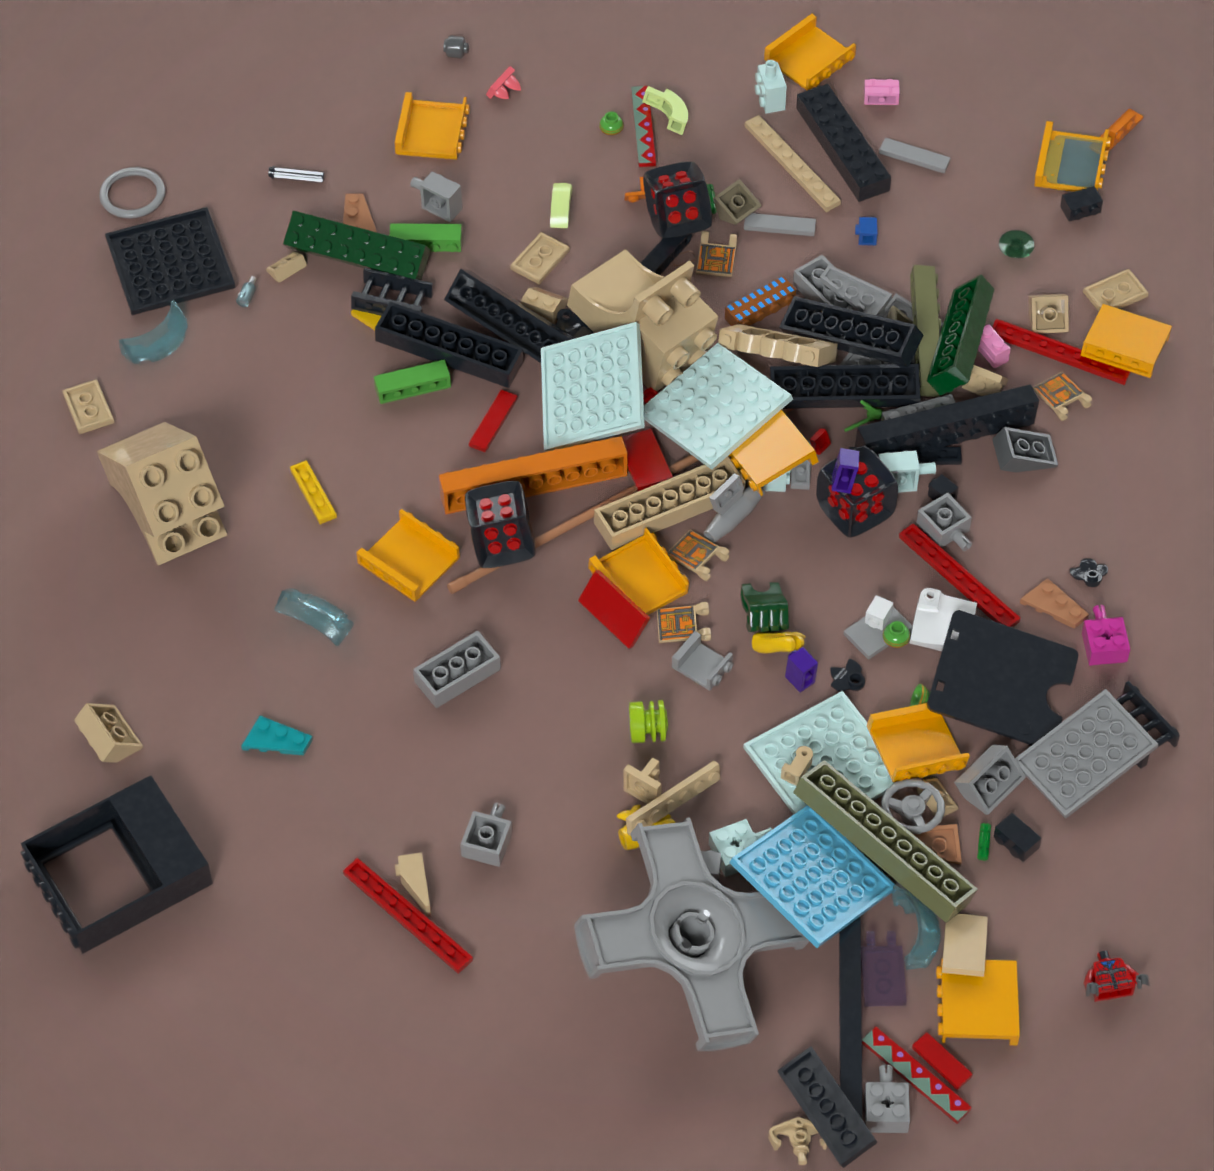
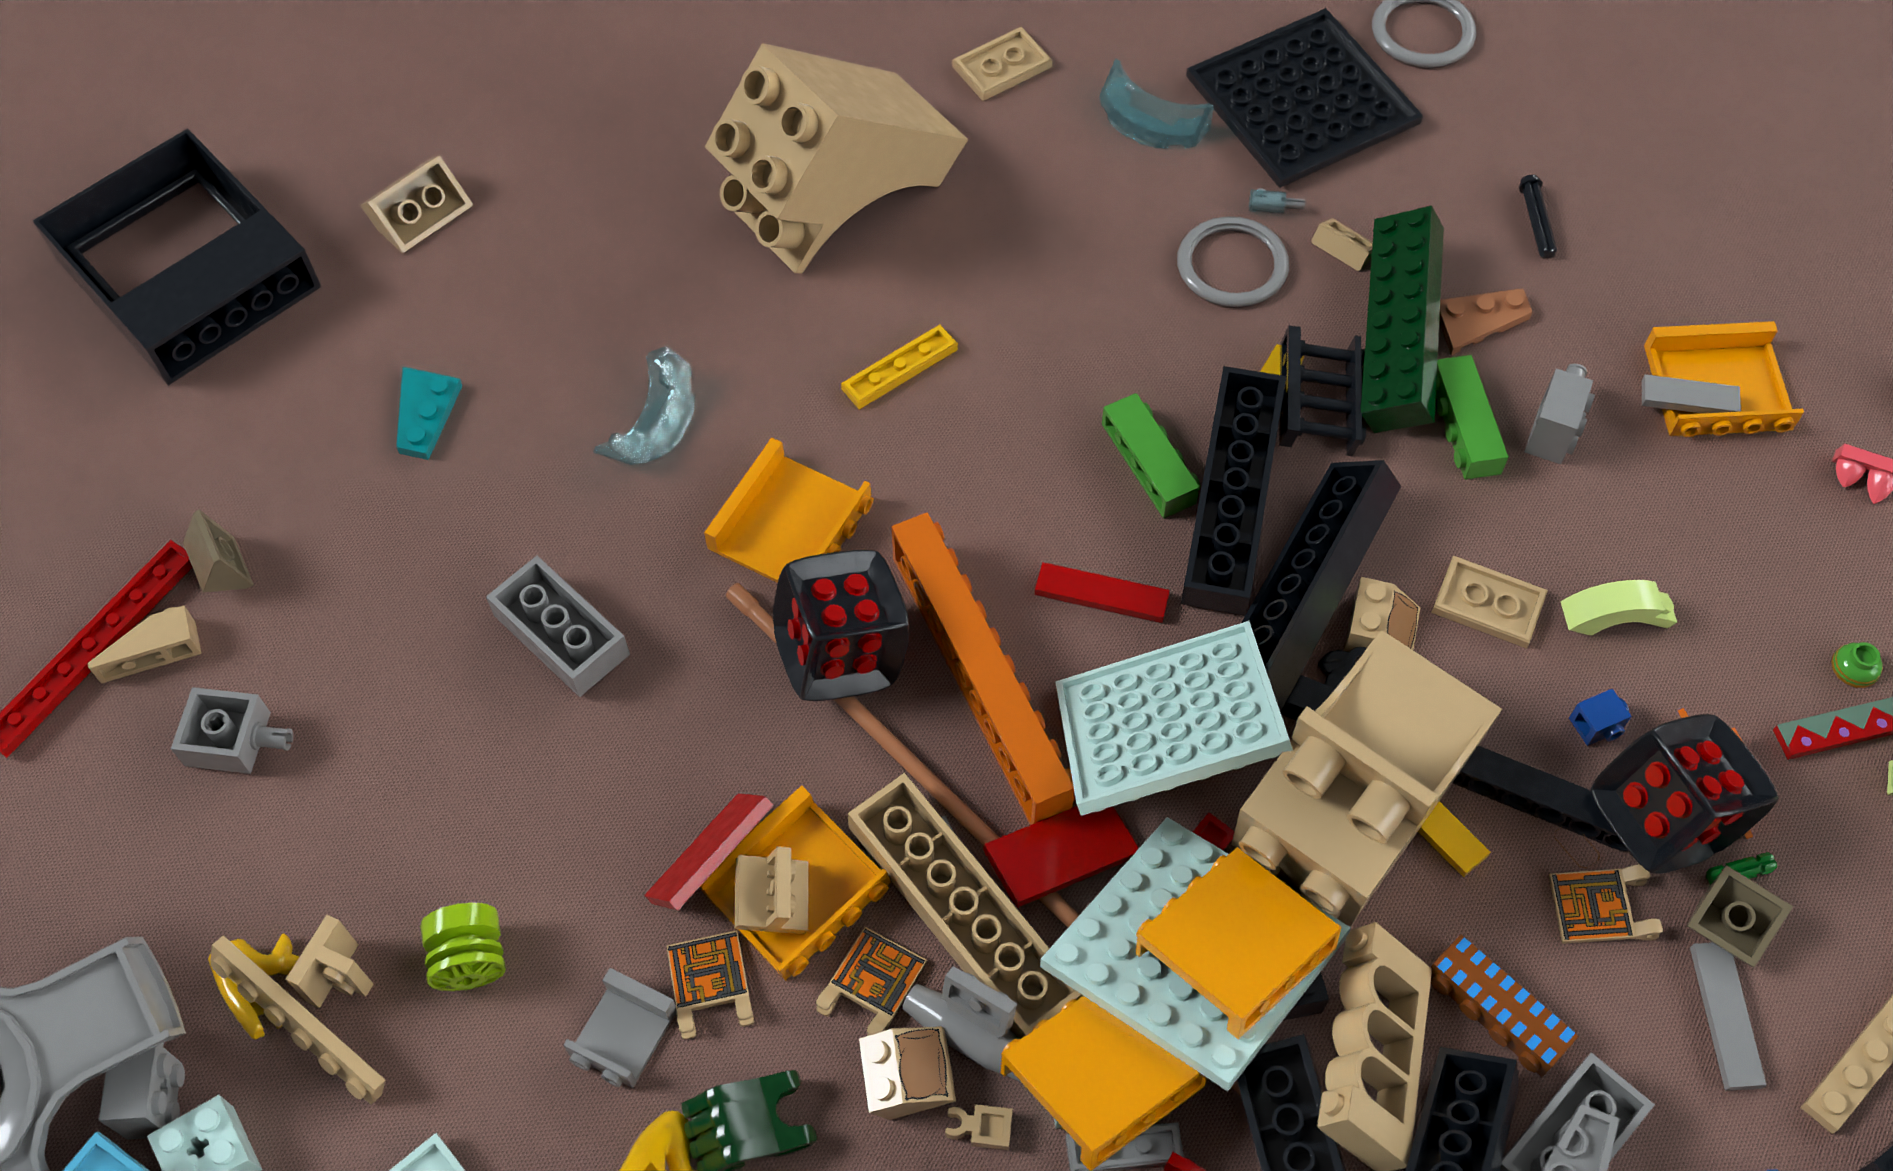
camera: 80 degrees right, 5 degrees up
(283, 343) = (1228, 299): none -> light grey wedge
(363, 842) = (215, 556): none -> dark tan slope
(439, 141) = (1689, 395): none -> light grey tile
(619, 228) = (1600, 717): none -> blue brick
(645, 580) = (771, 893): none -> tan bracket
(719, 378) = (1240, 938): none -> light orange panel
(750, 538) = (906, 1071): none -> slope
(780, 516) = (988, 1126): none -> tan plate

